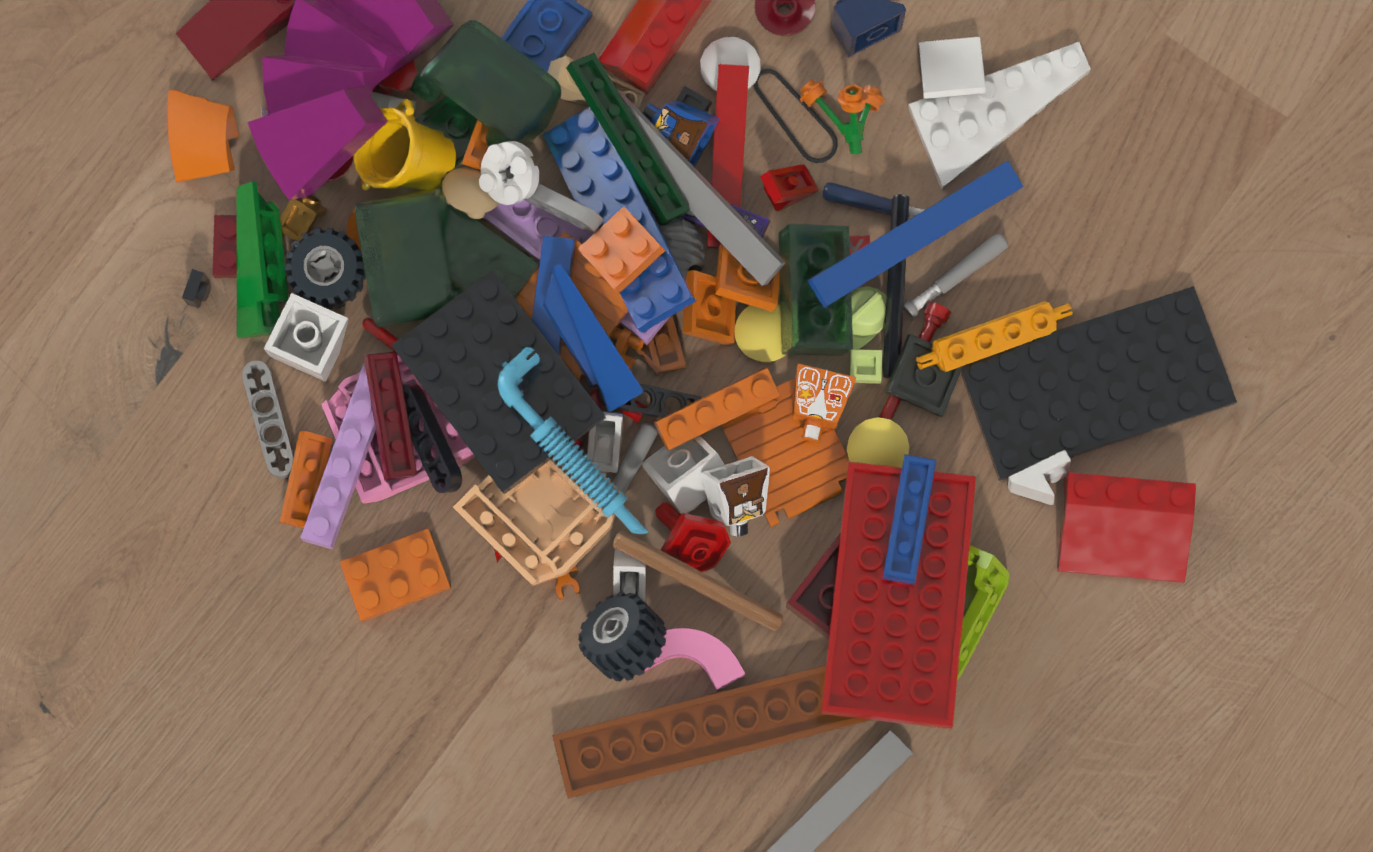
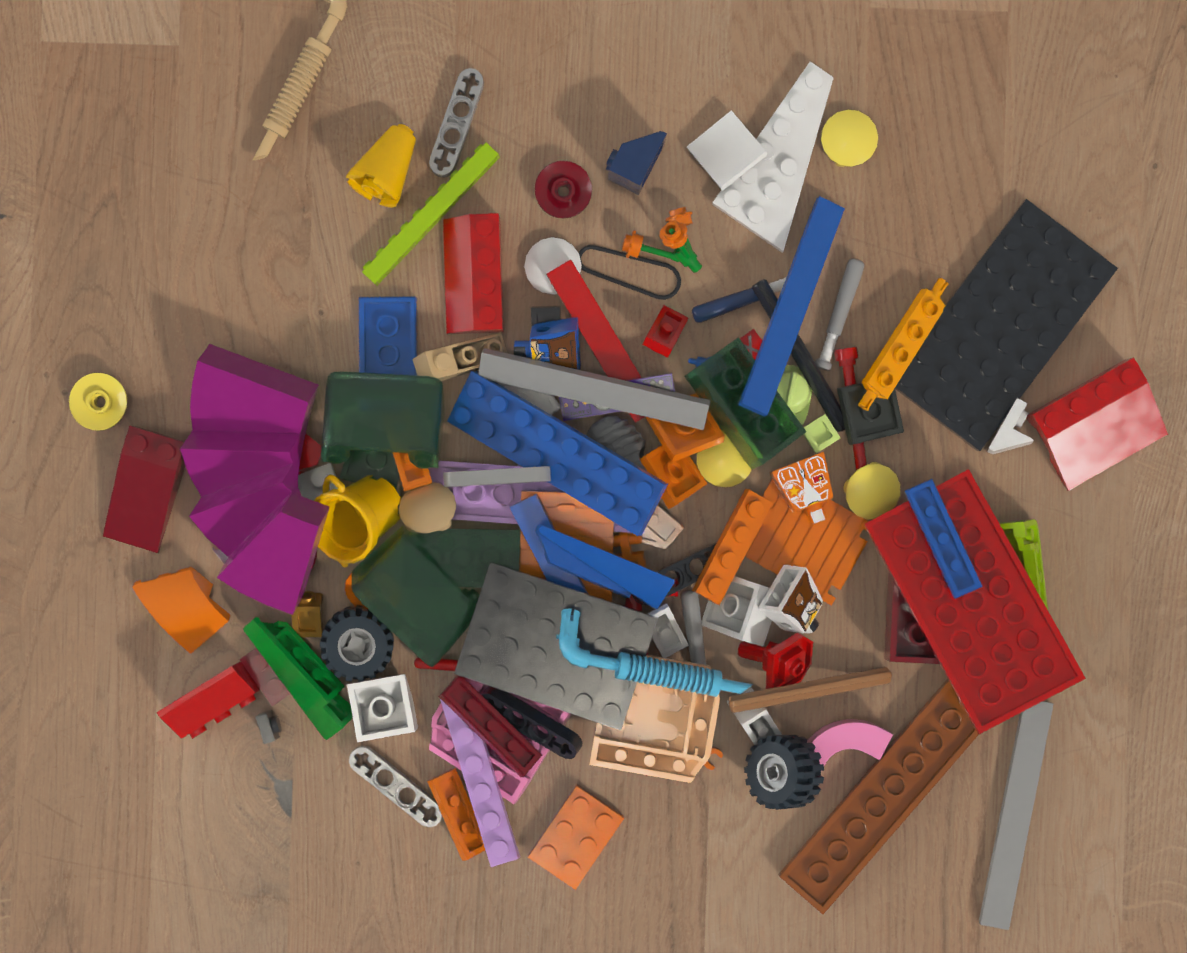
camera: 35 degrees left, 10 degrees up
(162, 229) = (210, 701): none -> red slope
(494, 178) = (446, 492): white plate -> none
(621, 250) = (581, 481): orange plate -> none
(628, 138) = (520, 385): dark green plate -> none
(1069, 130) = (849, 138): none -> light yellow dish

